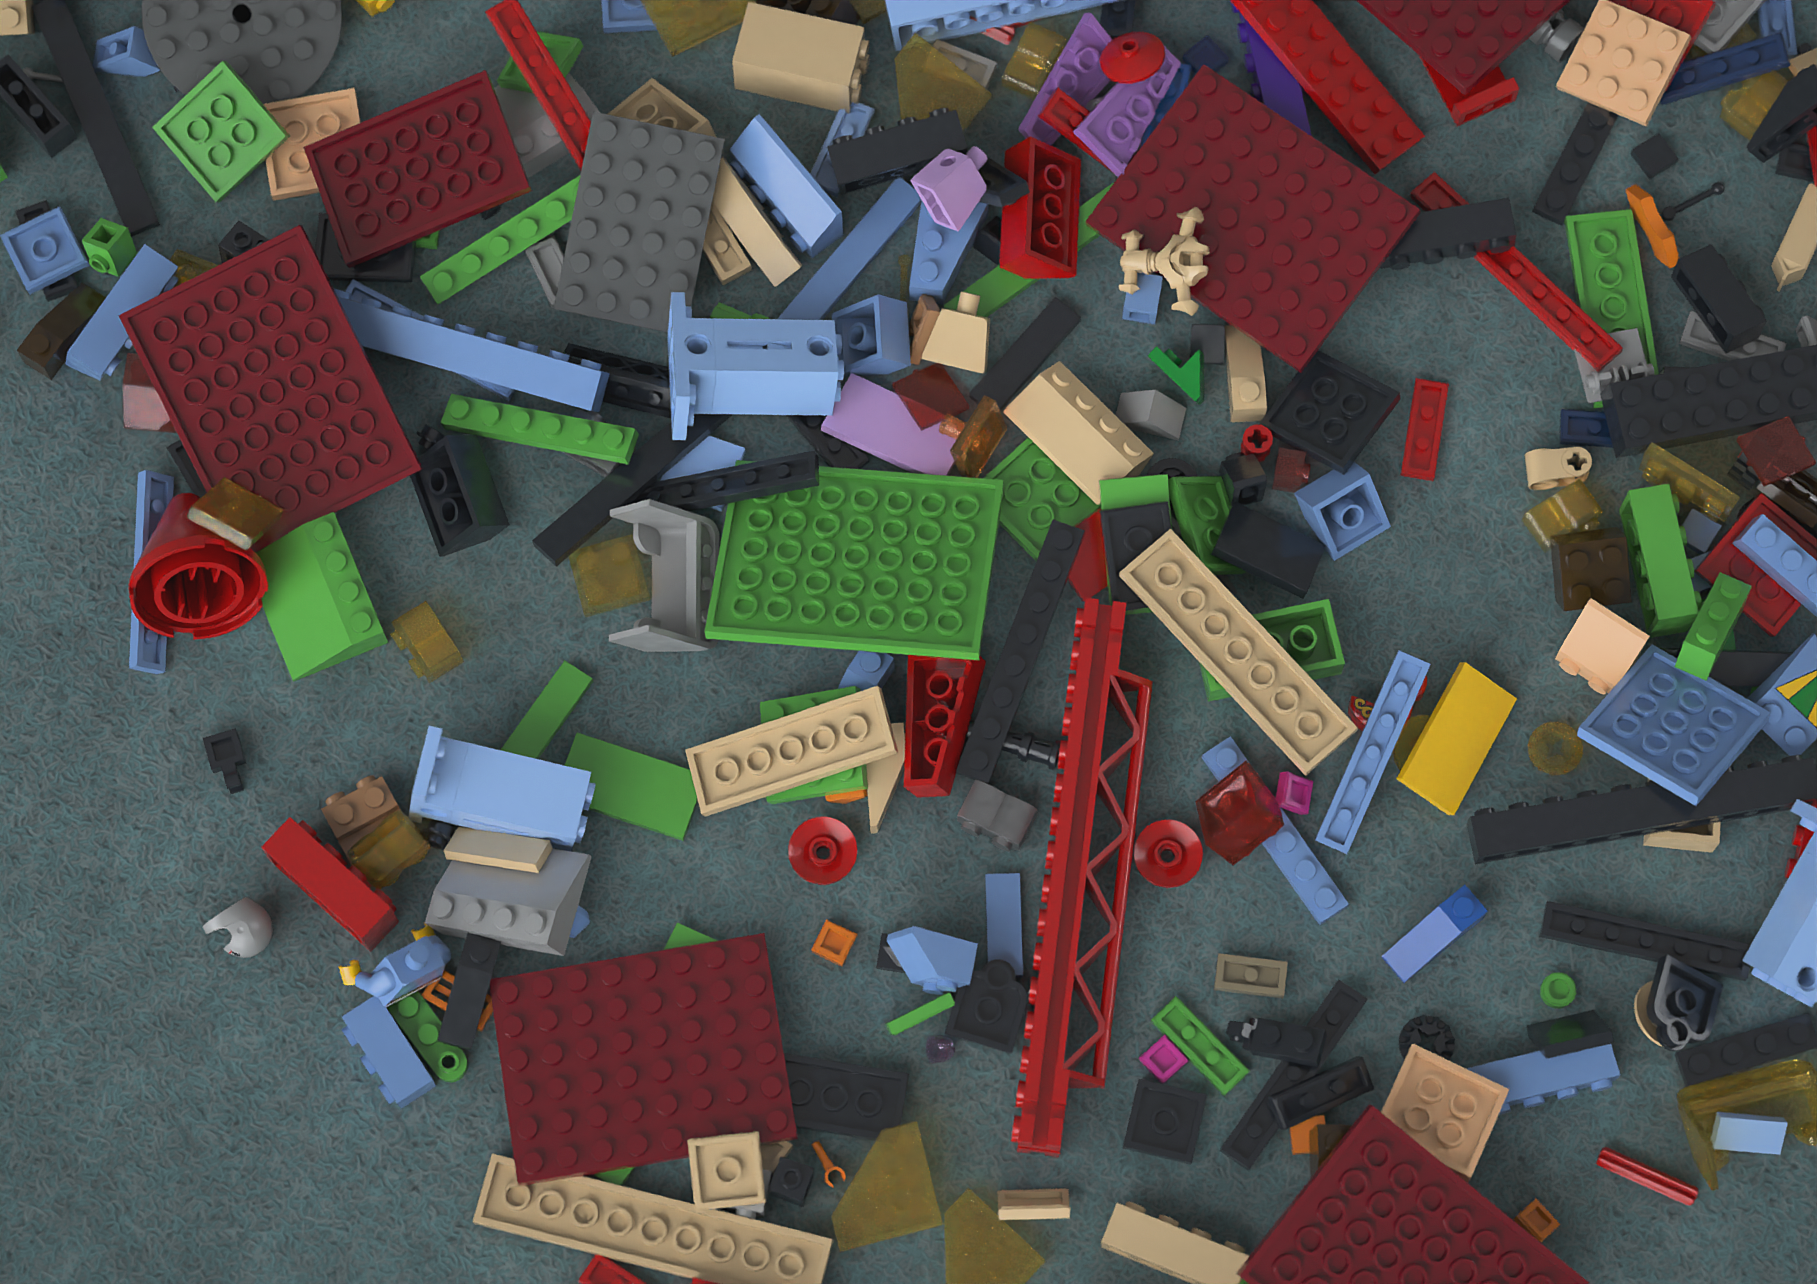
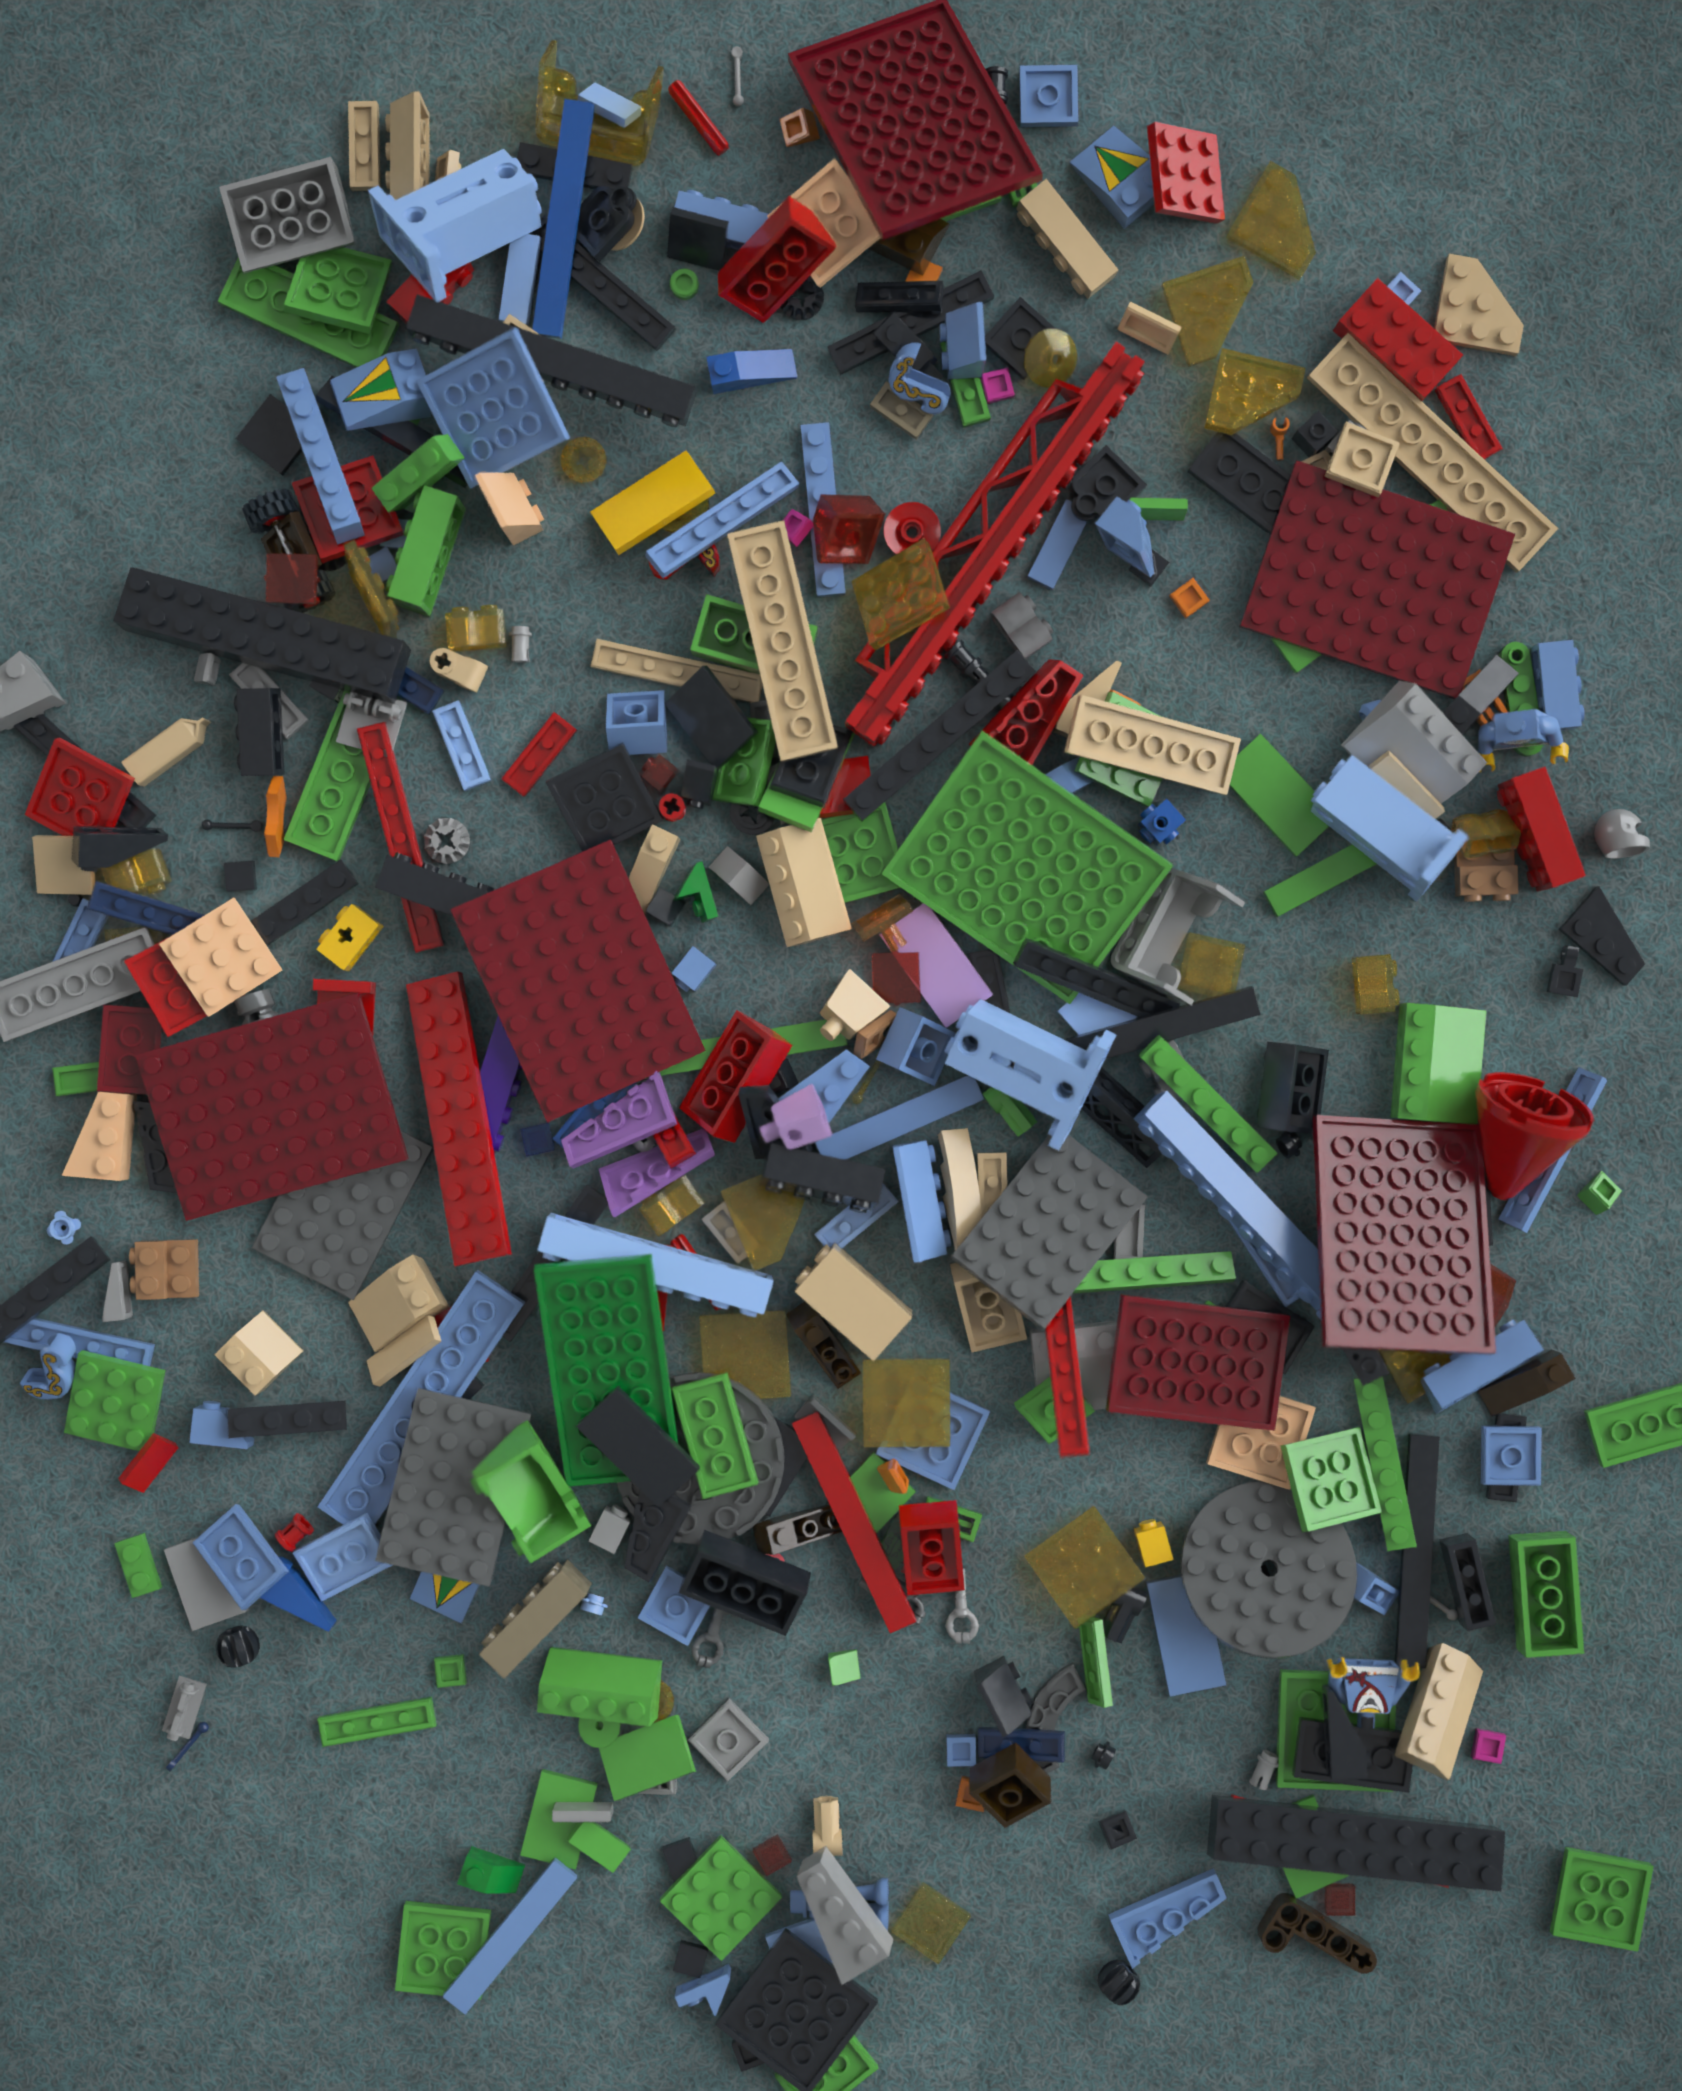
camera: 150 degrees left, 15 degrees up
(78, 558) = (1599, 1193): none -> bright green slope
(109, 247) = (1462, 1428): bright green brick -> none
(167, 174) = (1385, 1464): none -> bright green plate
(206, 818) = (1603, 938): none -> black wing
(235, 513) = (1481, 1146): clear yellow tile -> none
(735, 697) = (1167, 815): none -> blue brick
(817, 834) = (1165, 653): red dish -> none
(939, 1048) = (1155, 477): clear purple hinge -> none
(1027, 354) = (807, 972): black tile -> none
(1130, 1123) = (1040, 355): none -> clear yellow dish
(1132, 57) = (597, 1149): red dish -> none
(1142, 768) = (900, 594): none -> clear yellow plate
(1179, 261) = (656, 971): tan piece -> none
(1222, 1071) = (964, 342): none -> medium blue slope
(1248, 1002) = (915, 385): none -> medium blue animal
(1347, 580) = (671, 669): none -> tan tile
(1454, 303) = (460, 840): none -> light grey gear
(1473, 1044) = (775, 260): none -> red slope
(1504, 168) = (364, 931): none -> yellow brick
(1509, 397) = (461, 745): none -> light blue tile
(1509, 527) = (520, 644): none -> light grey pin
(1591, 567) = (480, 572): dark brown brick -> none
(1646, 1271) = (737, 53): none -> light grey hinge
(1724, 980) = (563, 218): none -> blue tile
(1731, 896) = (520, 278): none -> light blue tile

